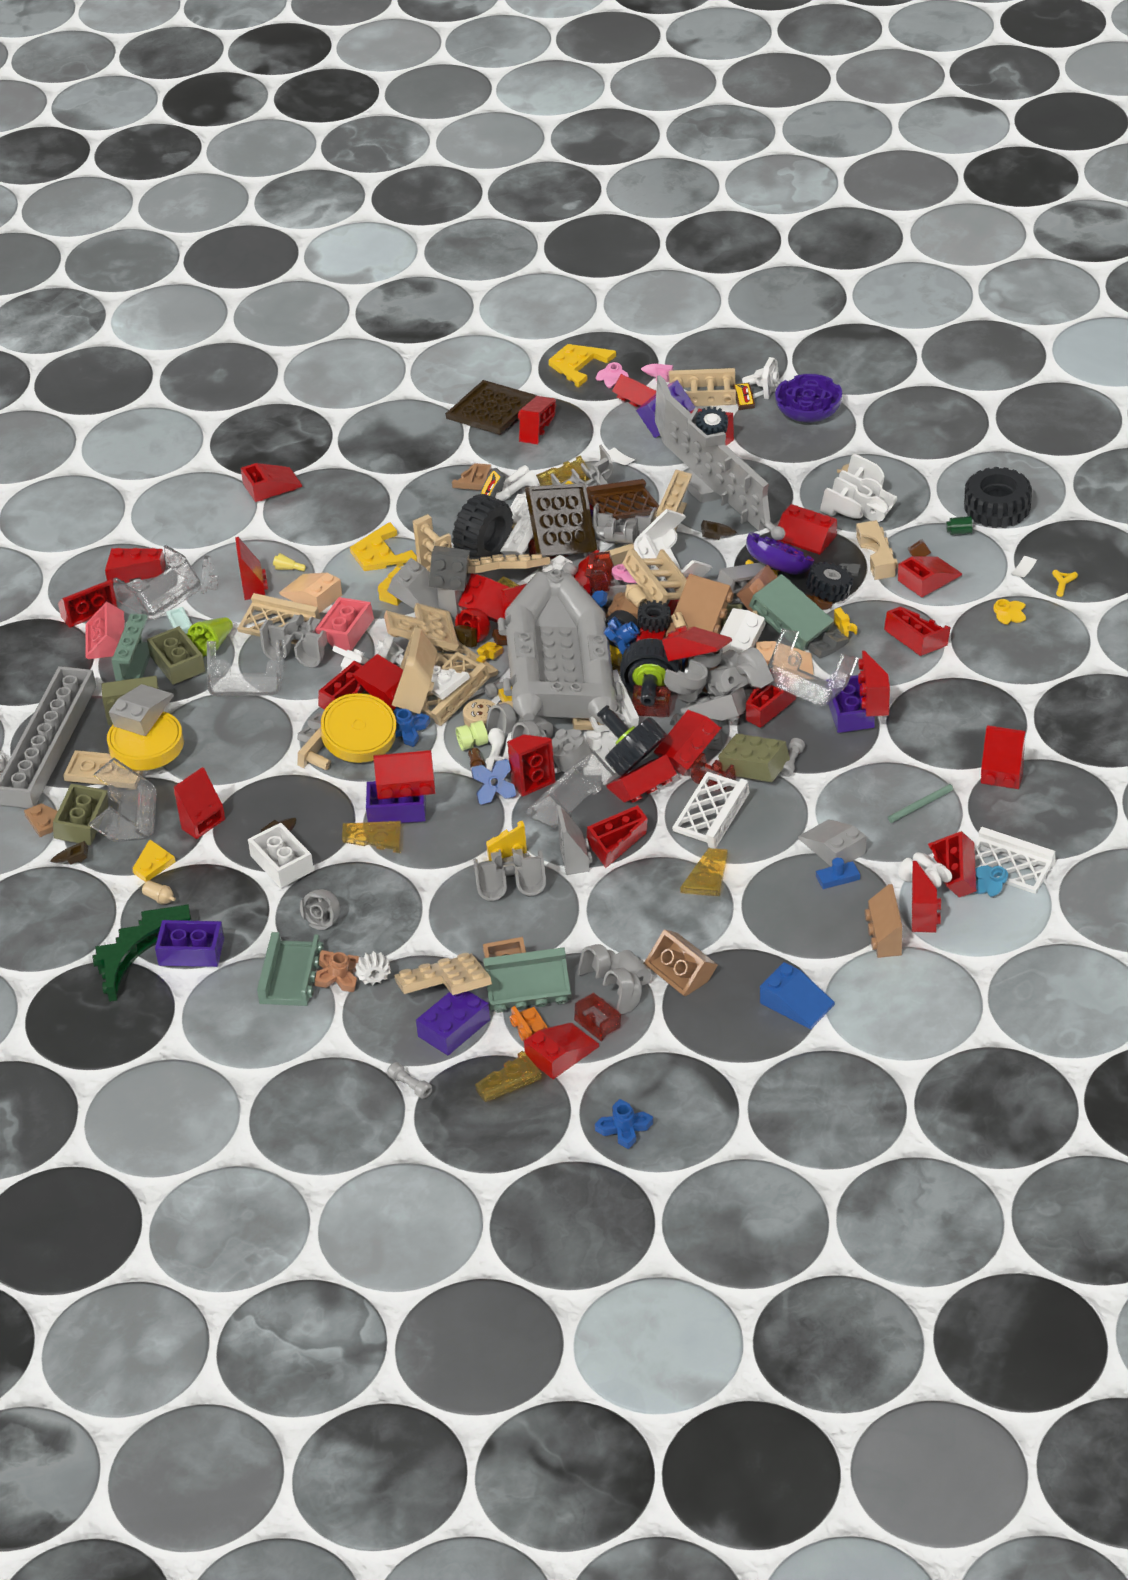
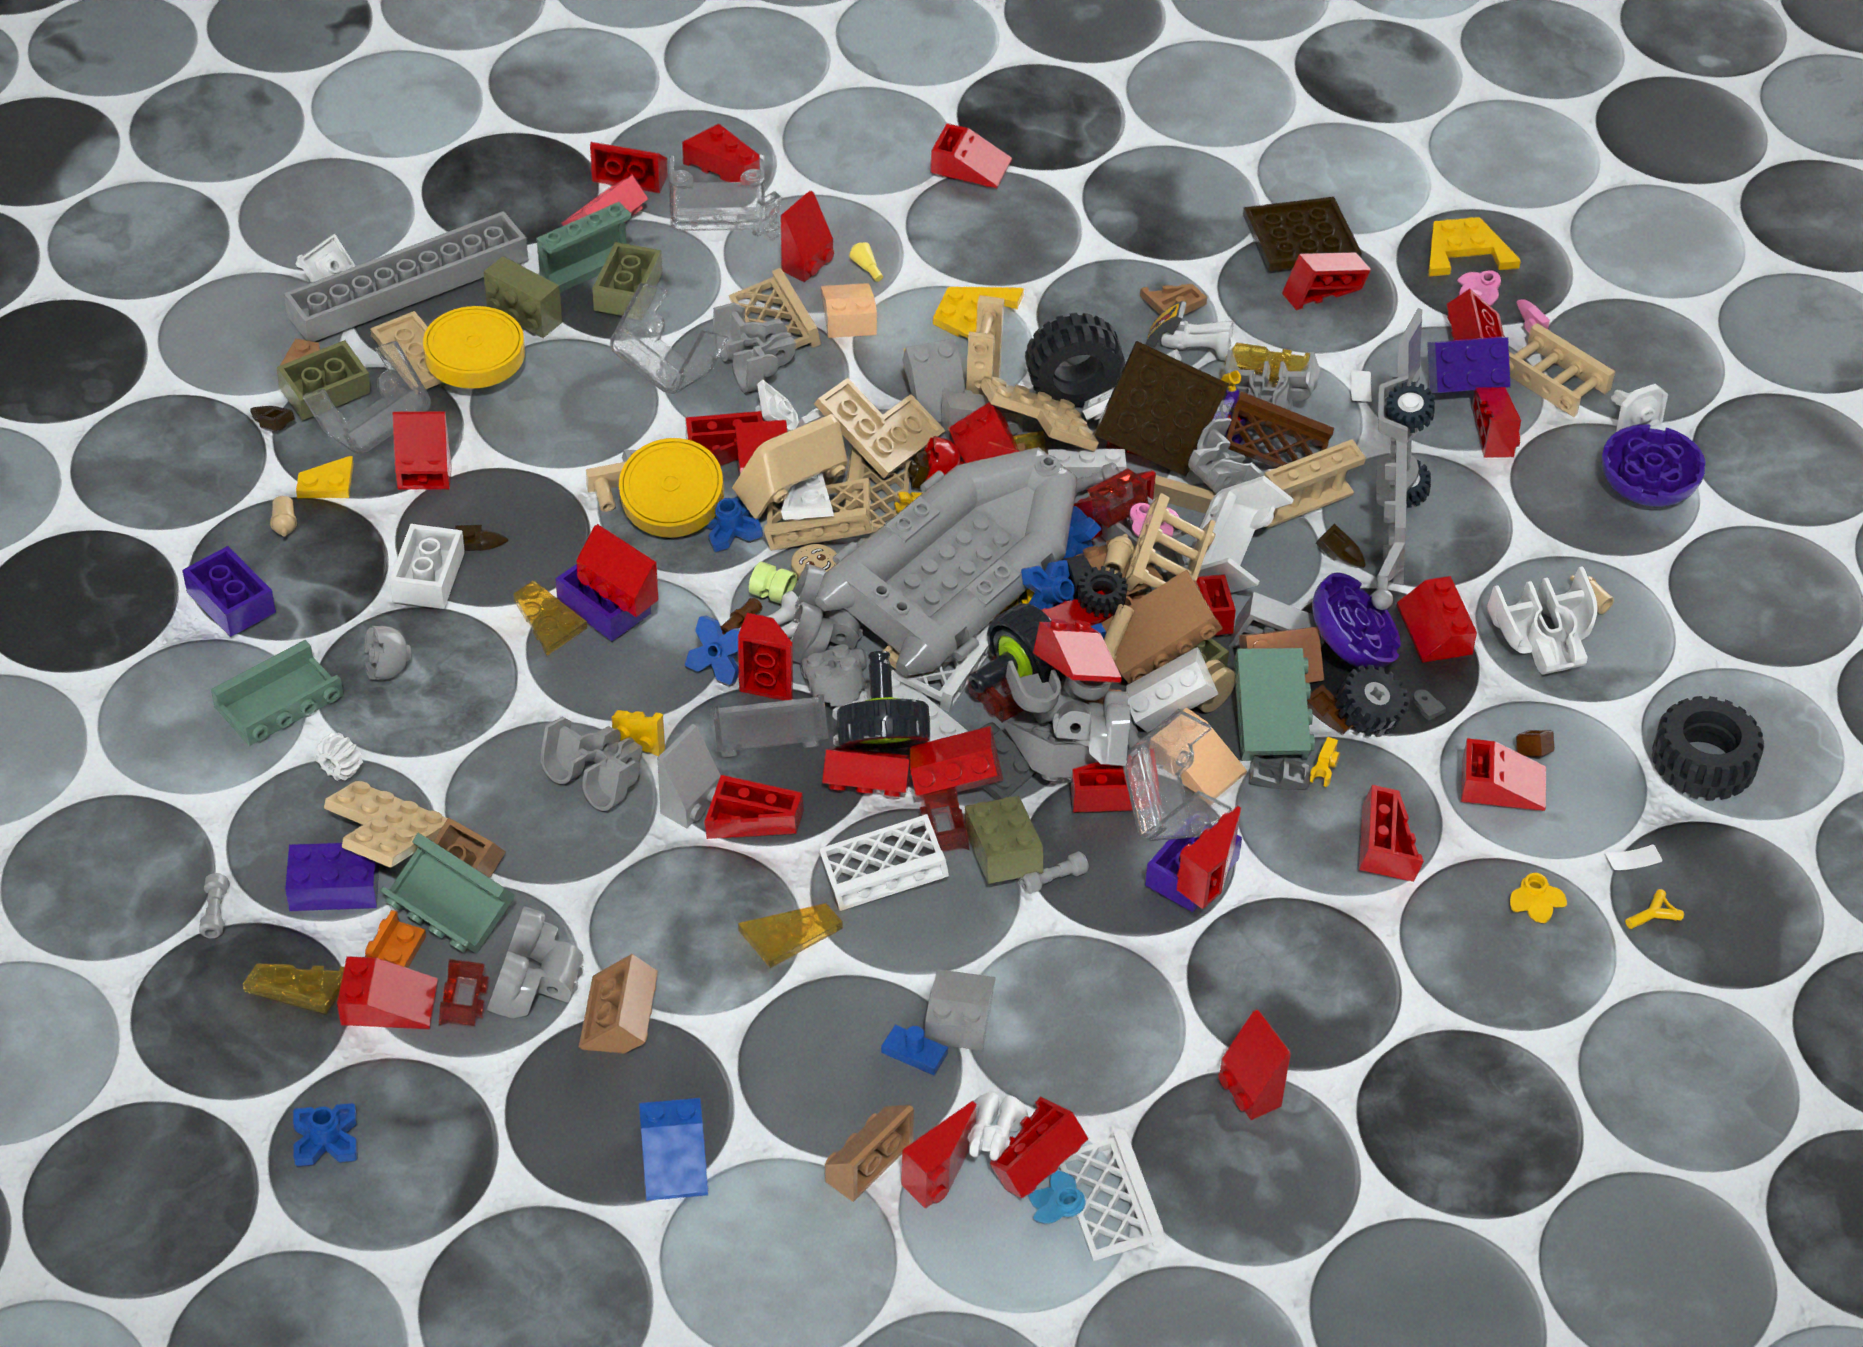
camera: 40 degrees right, 5 degrees up
(132, 942) = (158, 553): dark green arch -> none
(139, 709) = (495, 307): light grey slope -> none
(178, 617) = (690, 248): light aqua tile -> none
(209, 630) = (689, 281): lime cone -> none
(338, 969) = (309, 730): nougat plant -> none
(346, 622) = (821, 365): coral slope -> none
(449, 568) = (963, 377): dark grey brick -> none
(744, 396) = (1591, 412): slope -> none
(872, 537) = (1498, 684): tan arch -> none
(920, 803) = (1117, 1043): sand green bar -> none
(959, 525) = (1621, 748): dark green brick -> none

